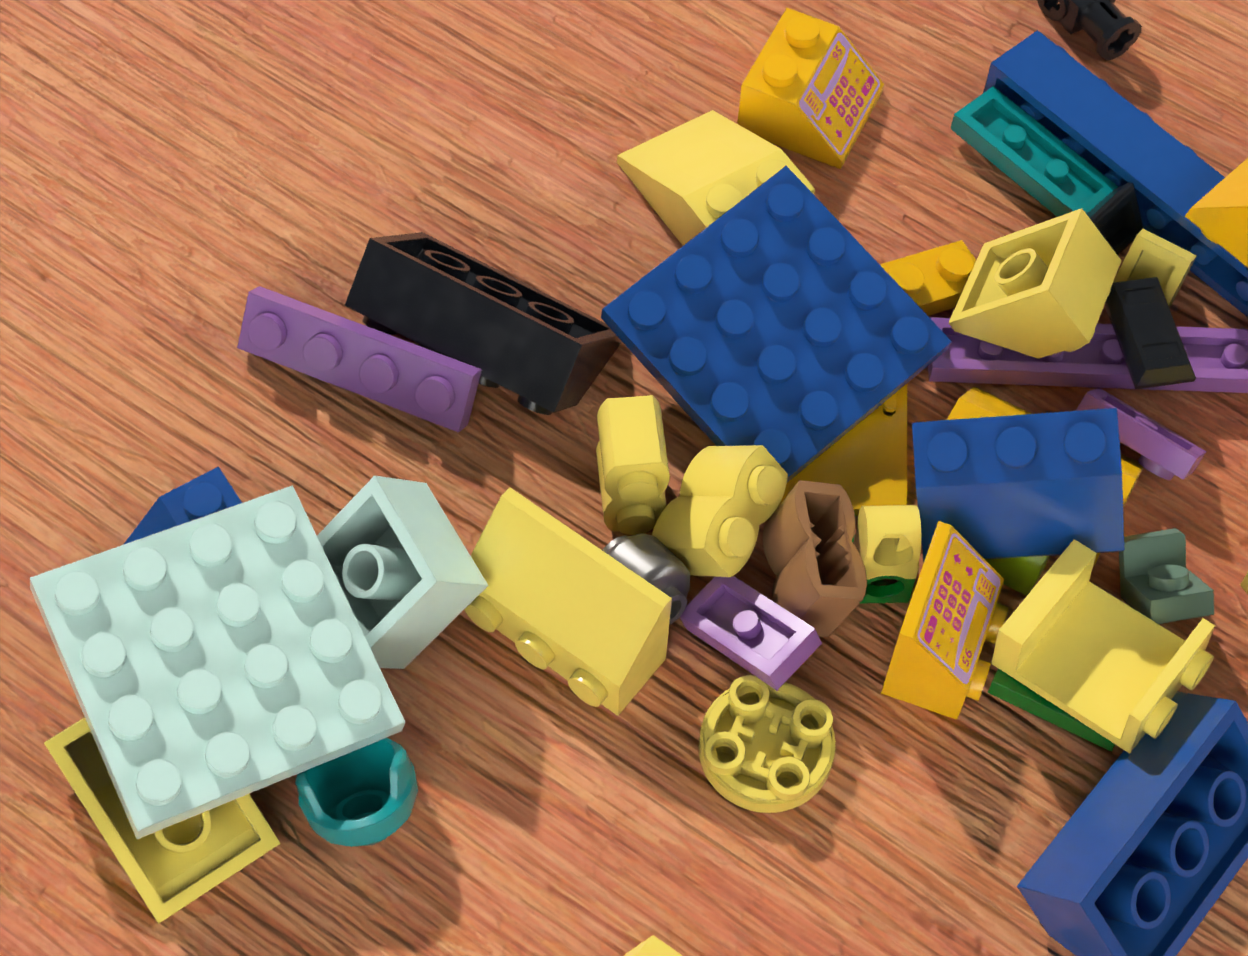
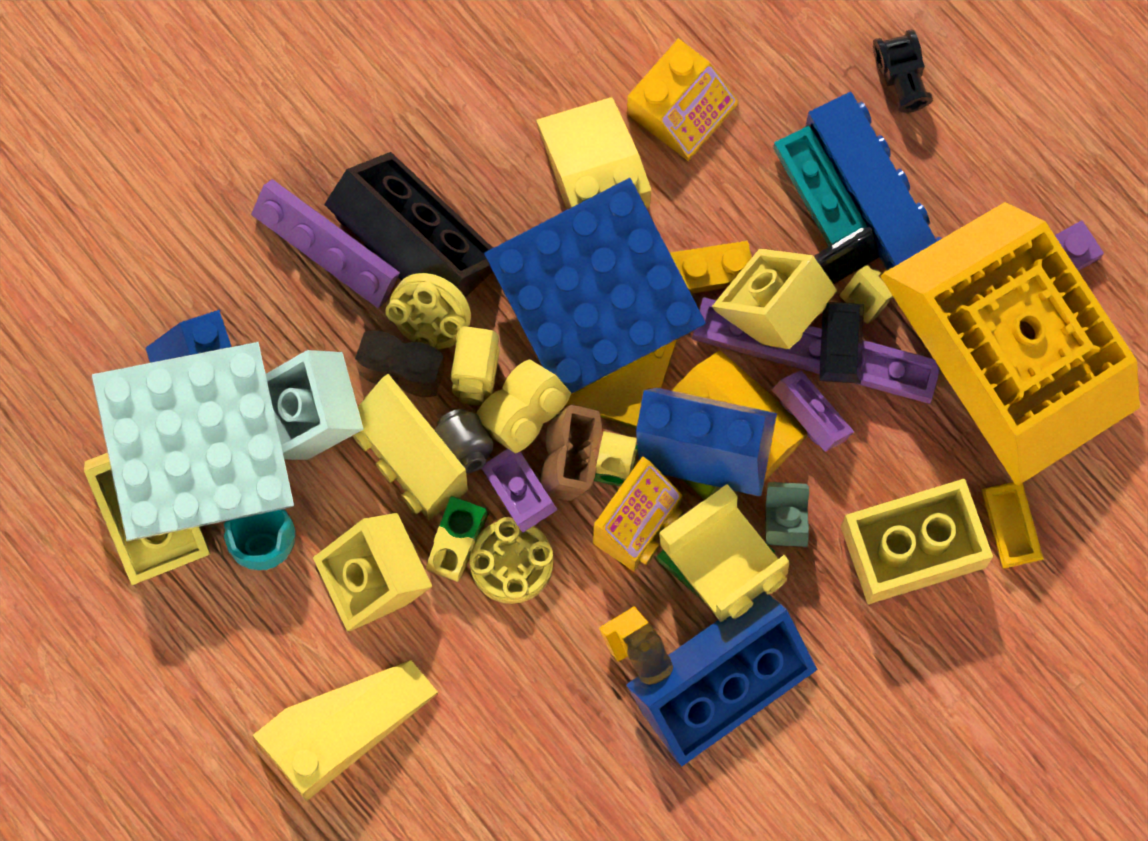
camera: 15 degrees right, 15 degrees up
(485, 472) = (411, 365): none -> clear smoke brick
(540, 409) = (428, 310): none -> light yellow tile
(552, 806) = (372, 570): none -> light yellow slope
(673, 724) = (456, 538): none -> leg
(1016, 815) = (635, 637): none -> clear smoke leg

